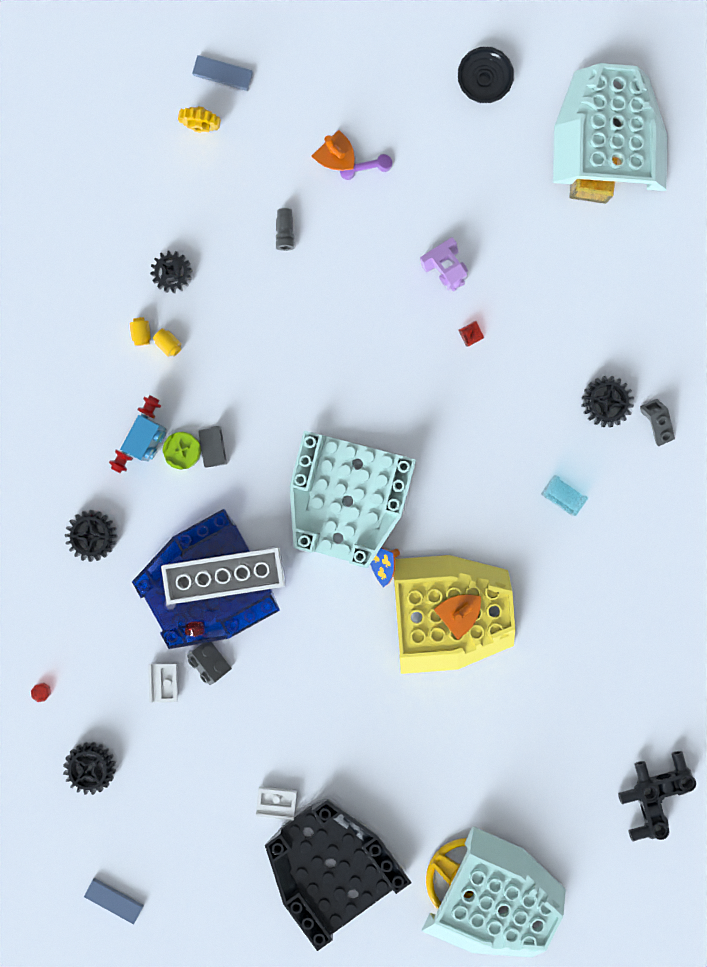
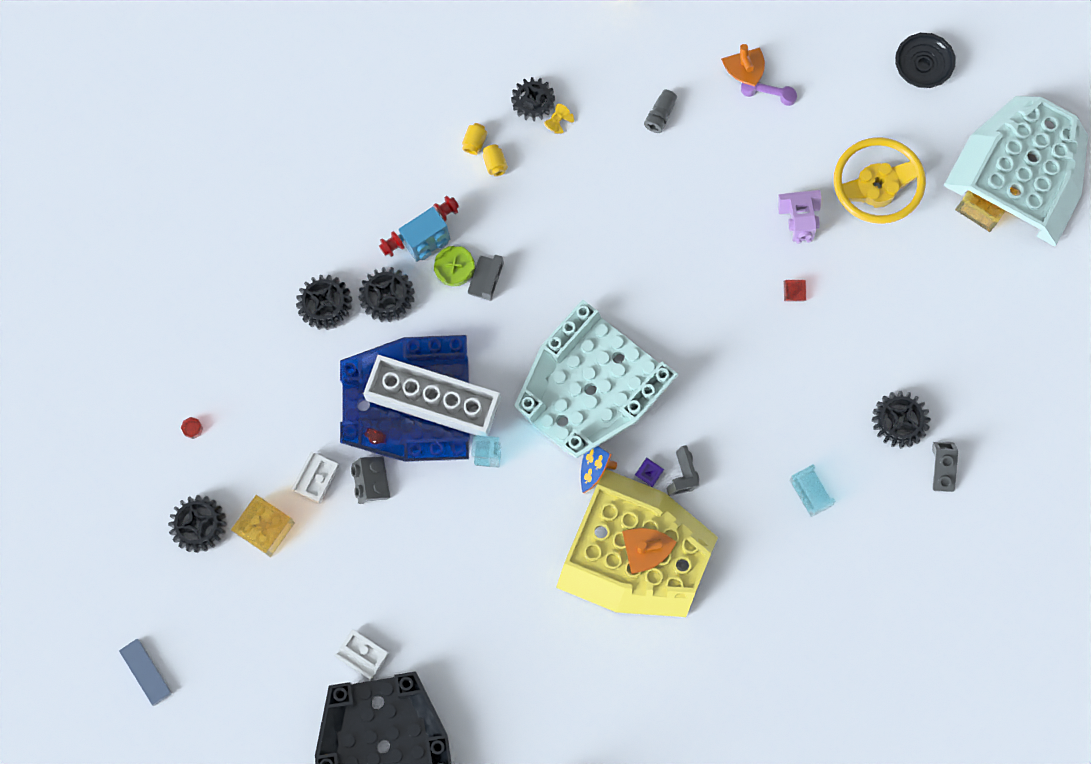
camera: 30 degrees right, 15 degrees down
(122, 503) = (380, 309): none -> black gear
(143, 744) = (263, 526): none -> clear yellow brick
(202, 272) = (561, 112): none -> yellow piece
(290, 596) = (486, 451): none -> clear light blue panel
(428, 544) = (649, 472): none -> dark purple tile
(464, 533) = (690, 477): none -> dark grey bracket
(503, 196) = (889, 177): none -> yellow piece

